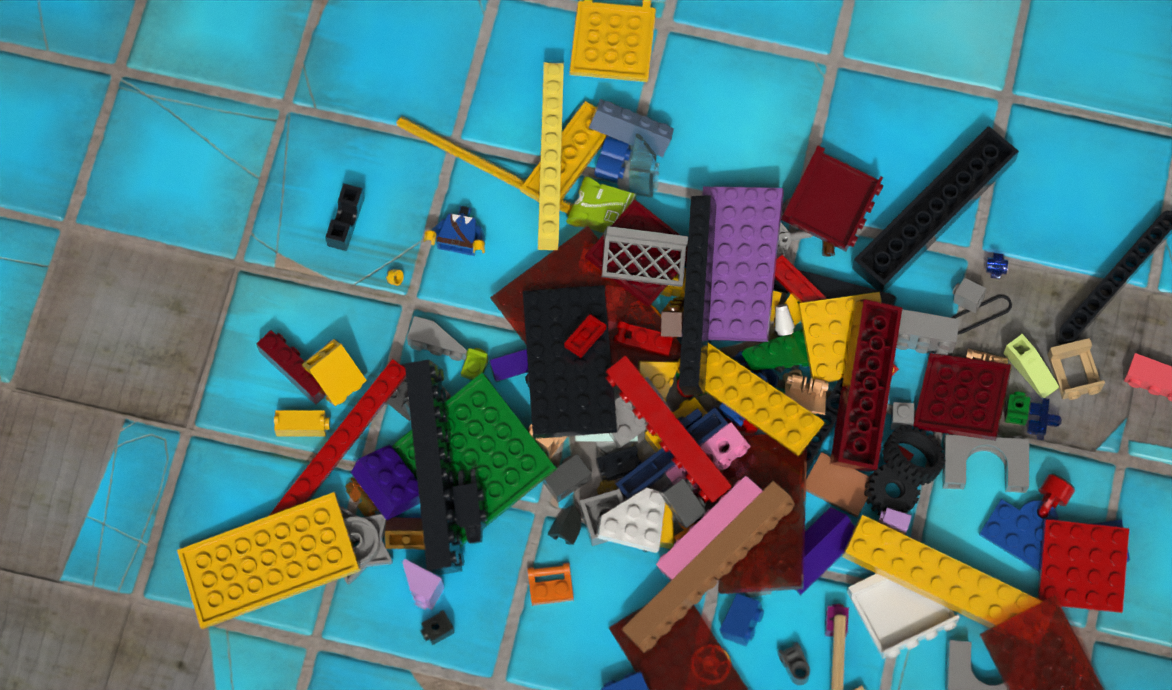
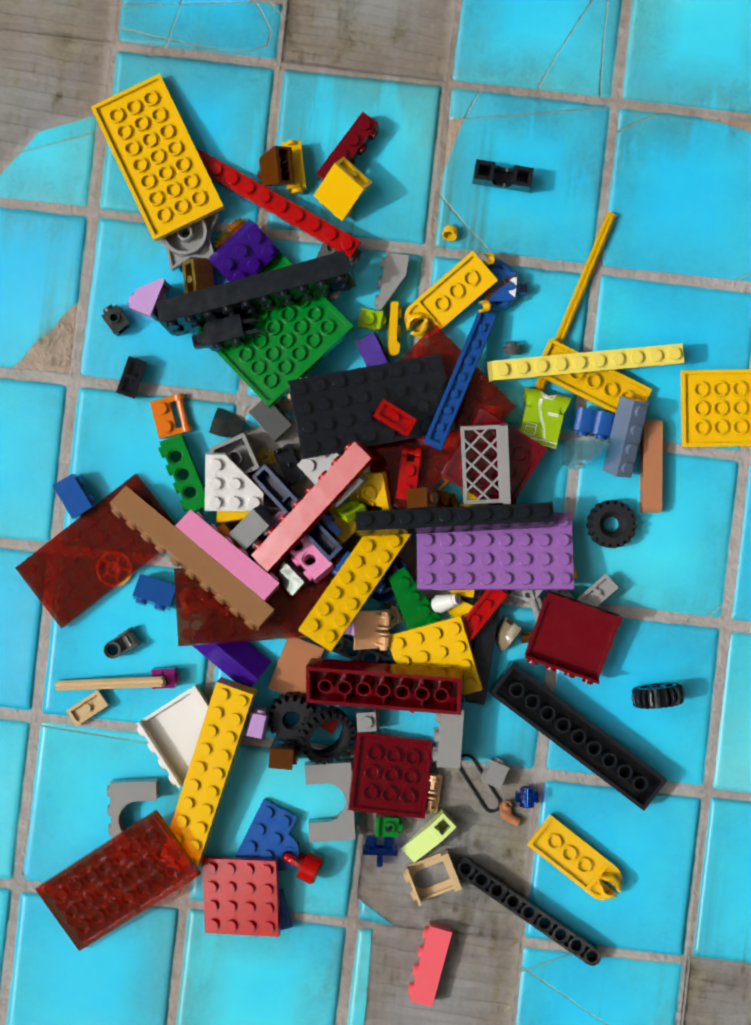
camera: 80 degrees right, 20 degrees up
(301, 436) = (277, 167): none -> reddish brown torso
(462, 281) = (450, 295): none -> yellow plate
(488, 343) = (394, 330): none -> yellow hinge
(502, 619) = (131, 377): none -> black hinge
(524, 230) = (511, 348): none -> dark grey plate
(552, 274) = (460, 380): none -> blue tile
(645, 560) = (167, 448): none -> green brick
(668, 110) = (651, 466): none -> nougat beam
(676, 400) = (348, 510): none -> lime bracket
(719, 141) = (625, 520): none -> black tyre
(741, 467) = (292, 577): none -> brick
(787, 171) = (599, 591): none -> light grey hinge
(823, 266) = (506, 633): none -> dark tan brick
(901, 127) = (657, 695): none -> black gear
(930, 498) = (283, 754): none -> reddish brown brick
(1013, 290) = (506, 813): none -> nougat arm
(1066, 226) = (576, 859): none -> yellow plate

